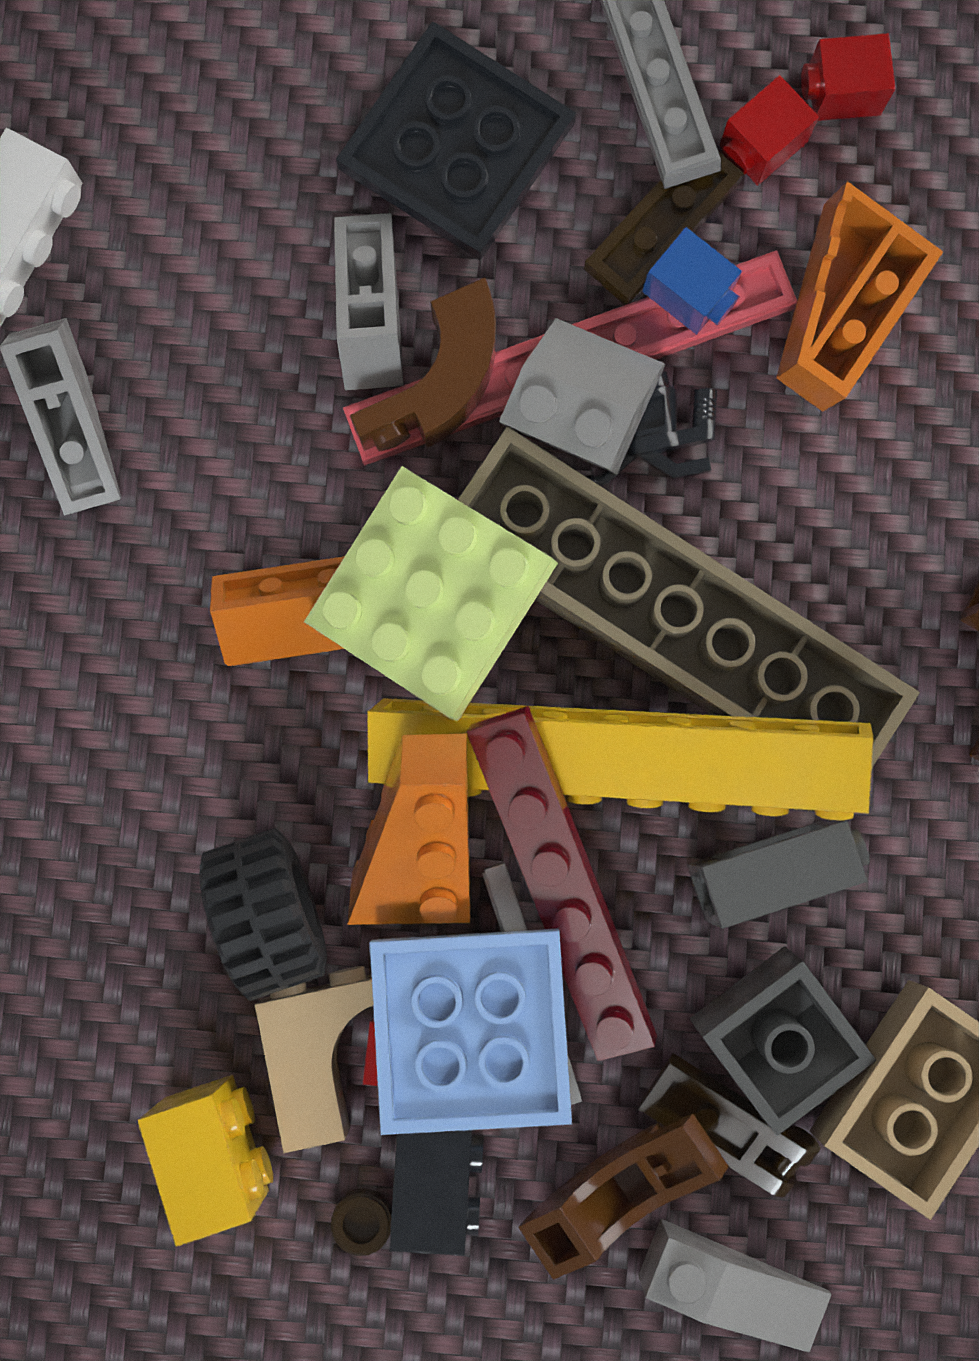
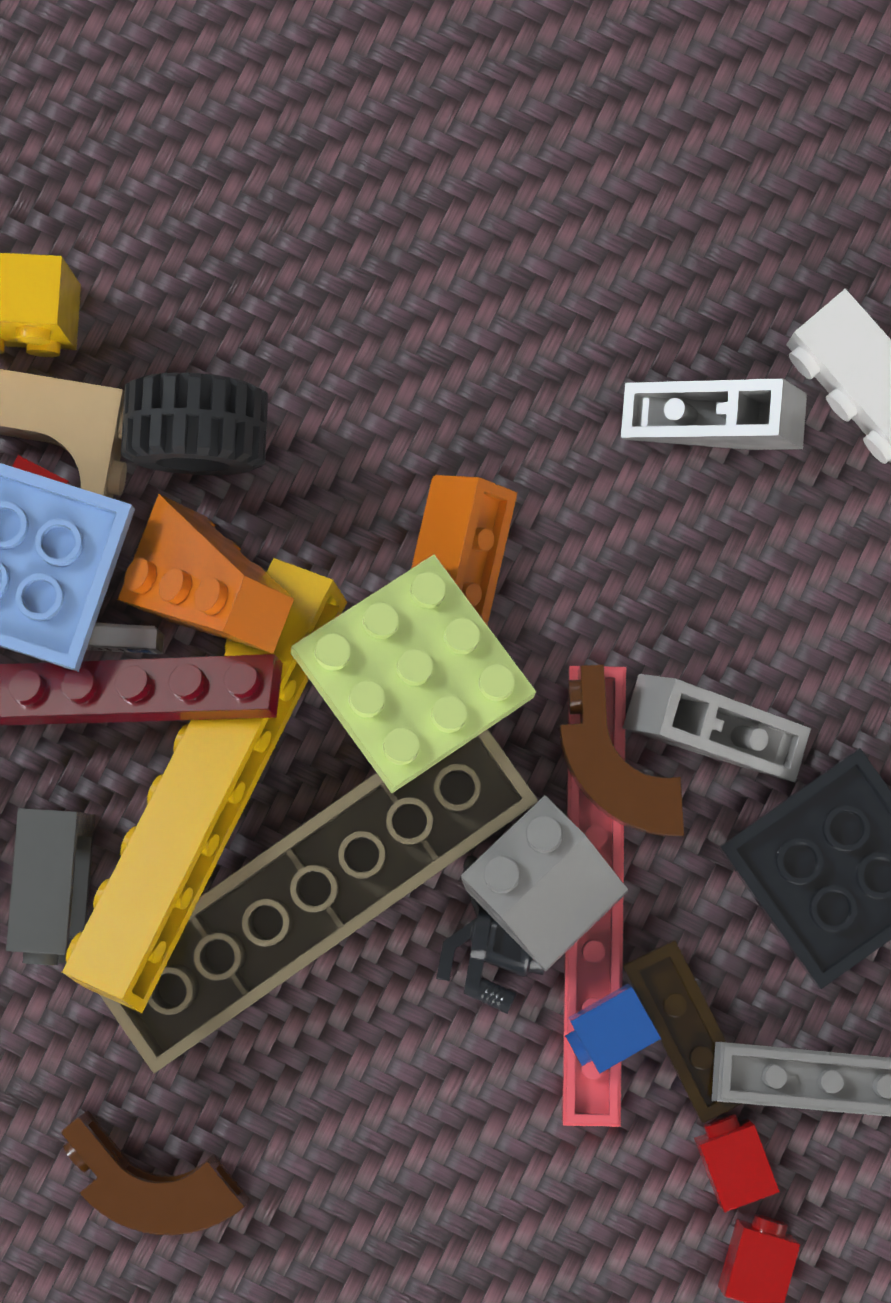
camera: 115 degrees right, 0 degrees up
(851, 295) = (542, 1171): orange wedge -> none

